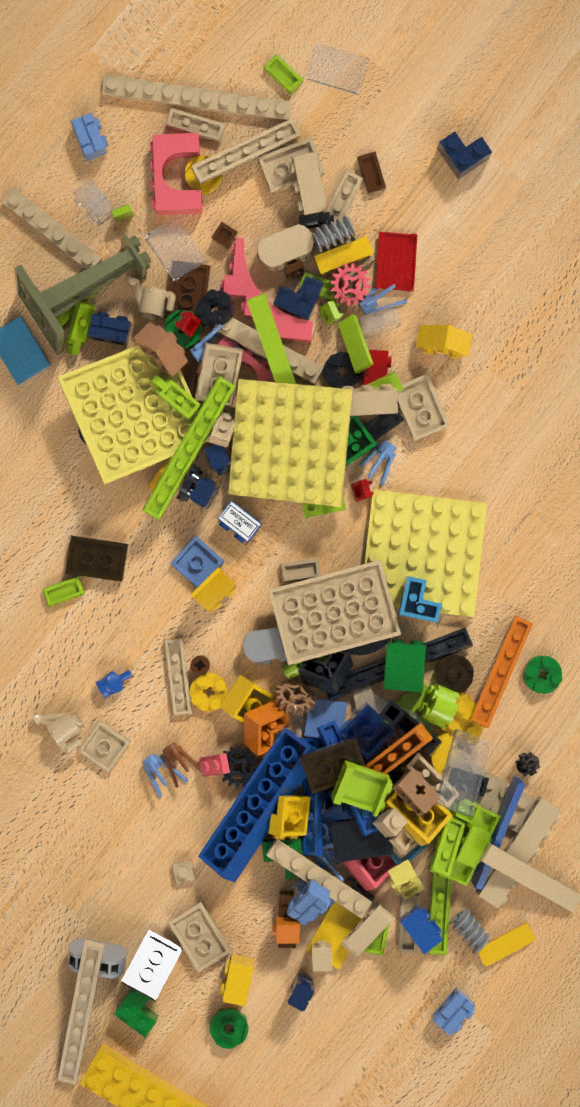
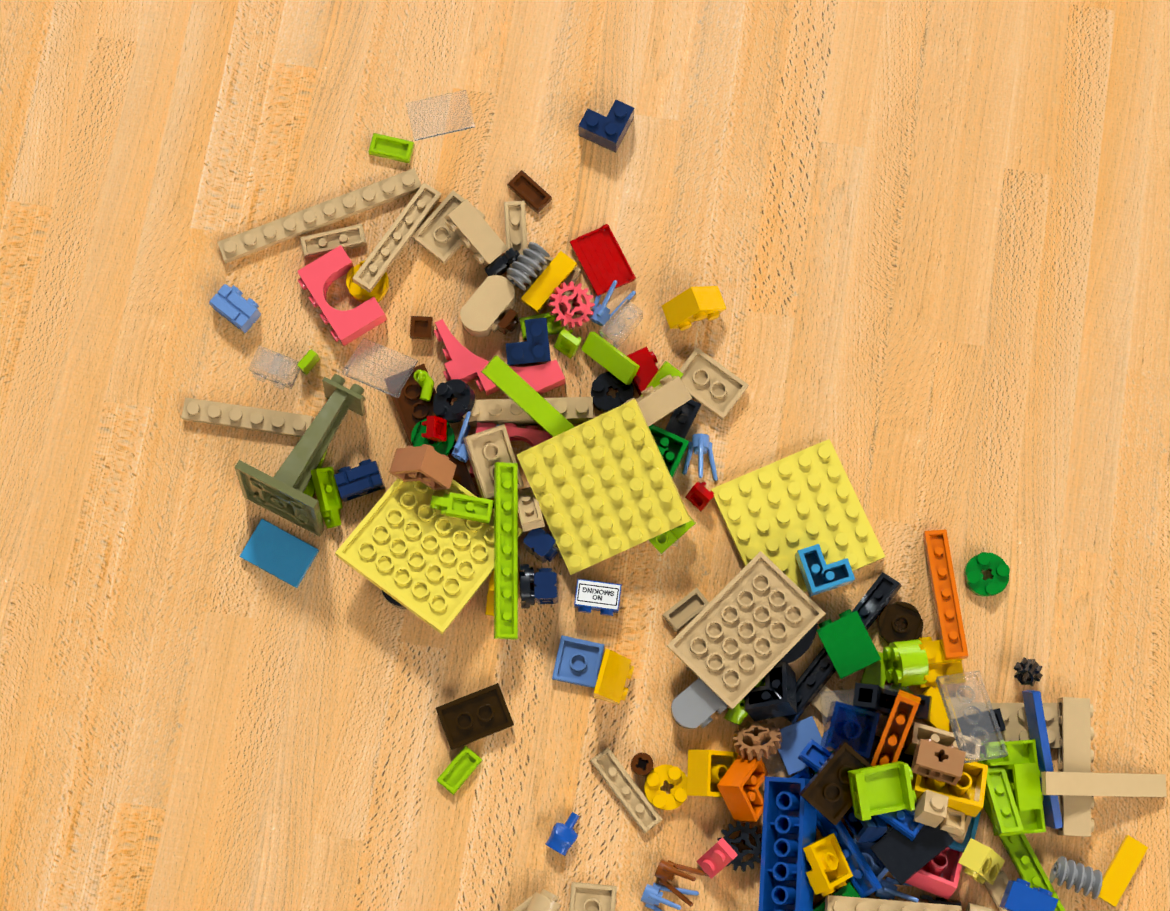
camera: 25 degrees left, 10 degrees down
(152, 300) = (385, 428): tan piece -> none
(202, 281) = (426, 383): none -> lime arm

